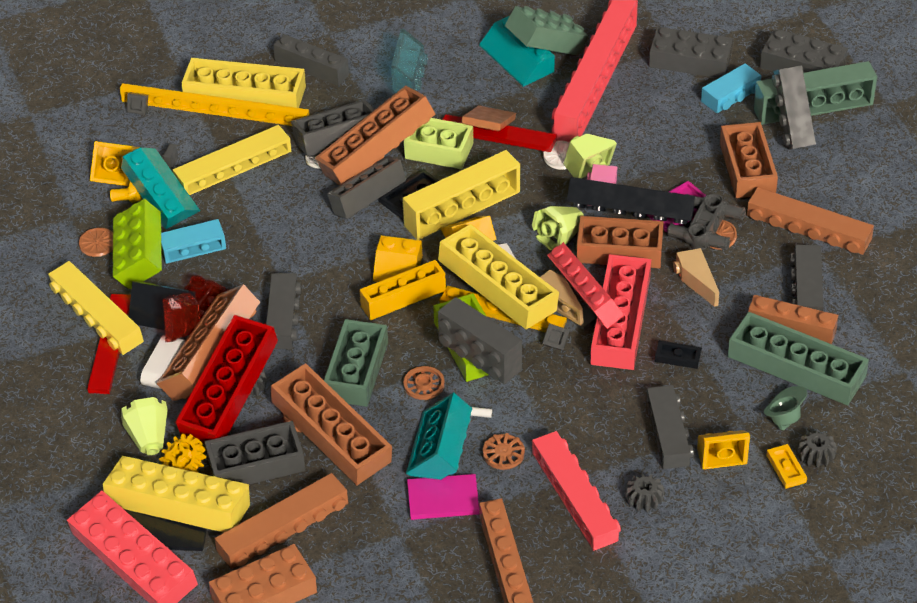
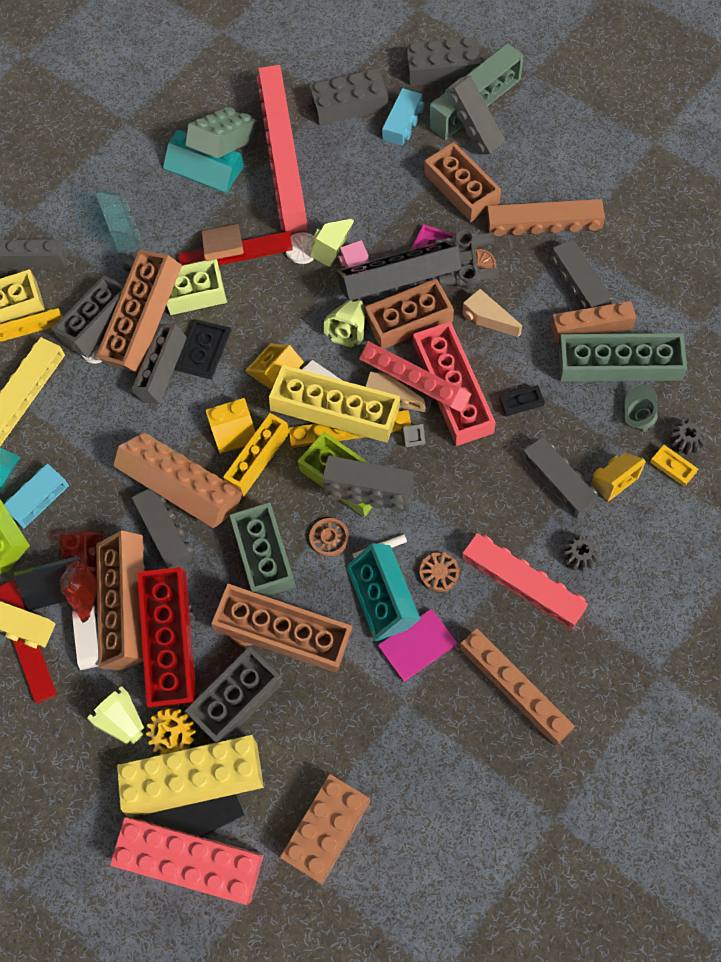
camera: 25 degrees left, 20 degrees up
(281, 521) = (298, 749): nougat brick -> none
(319, 275) = (178, 479): none -> nougat brick
(461, 194) = (247, 332): light yellow brick -> none

